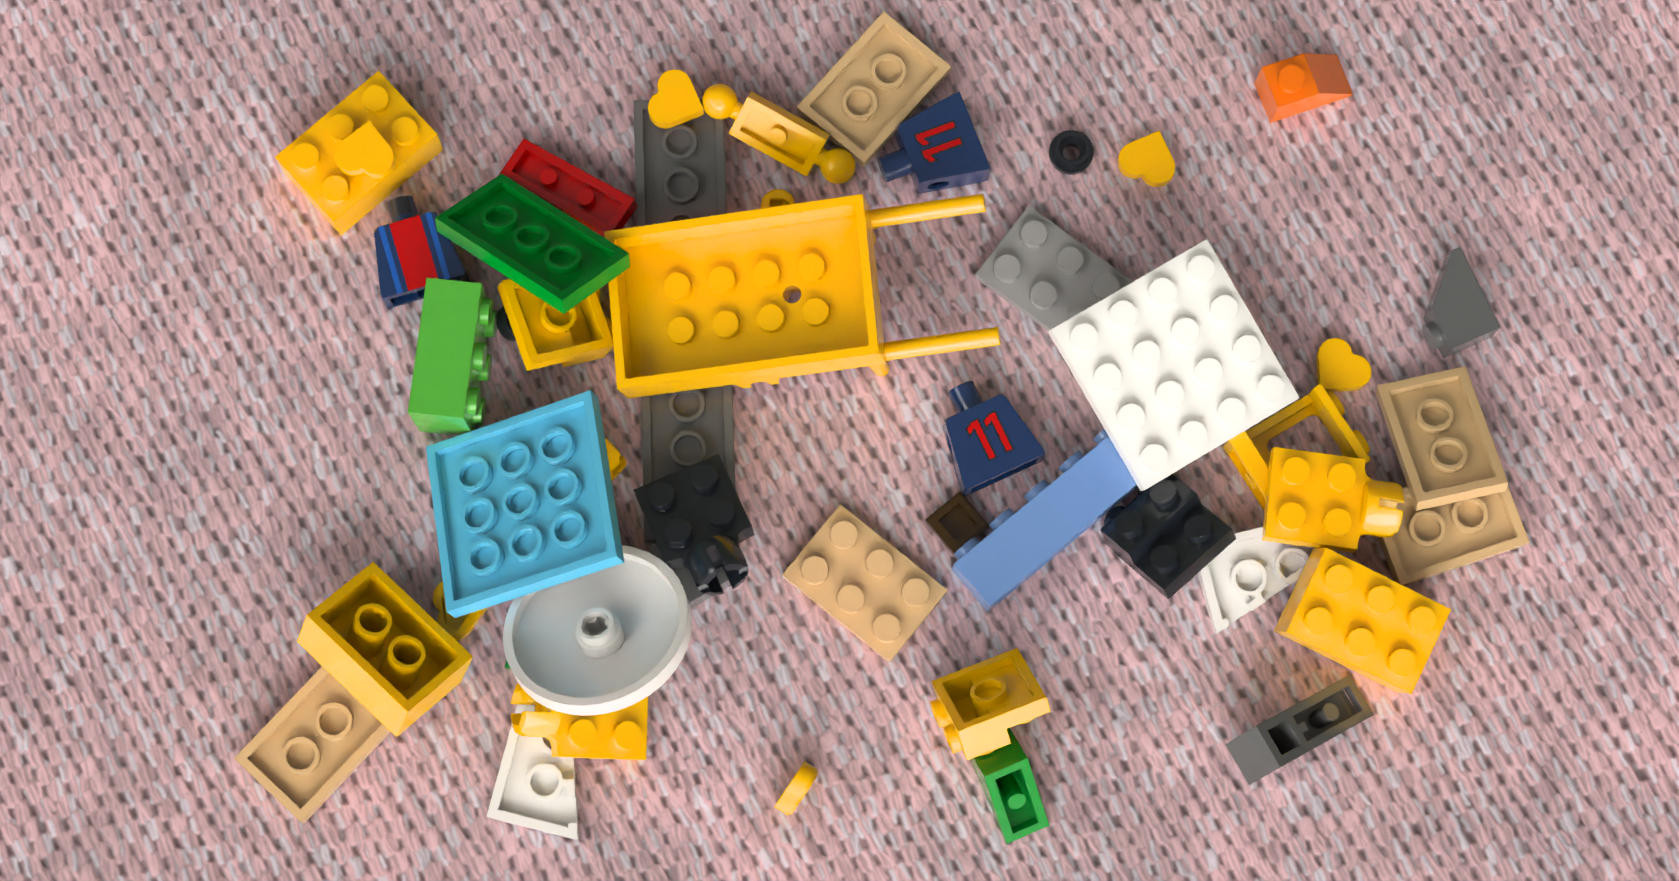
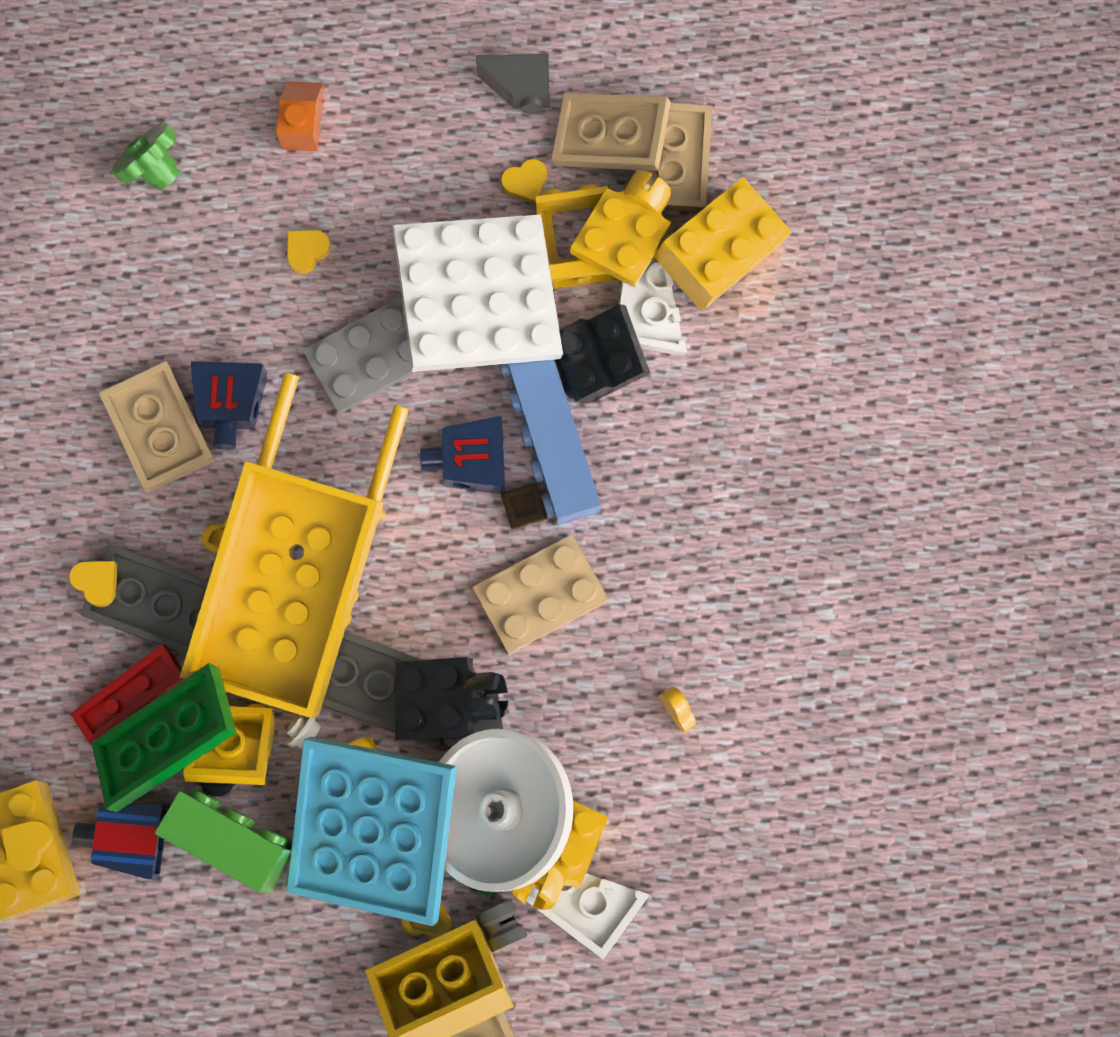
camera: 65 degrees left, 0 degrees up
(473, 699) = (507, 933): none -> dark grey wheel
(605, 387) = (301, 729): none -> white plate
(778, 133) = (159, 513): yellow plate -> none
(985, 701) = (674, 537): yellow plate -> none
(1011, 790) = (737, 549): green slope -> none
(1074, 139) = (274, 291): black plate -> none
(1299, 729) = (783, 325): dark grey slope -> none

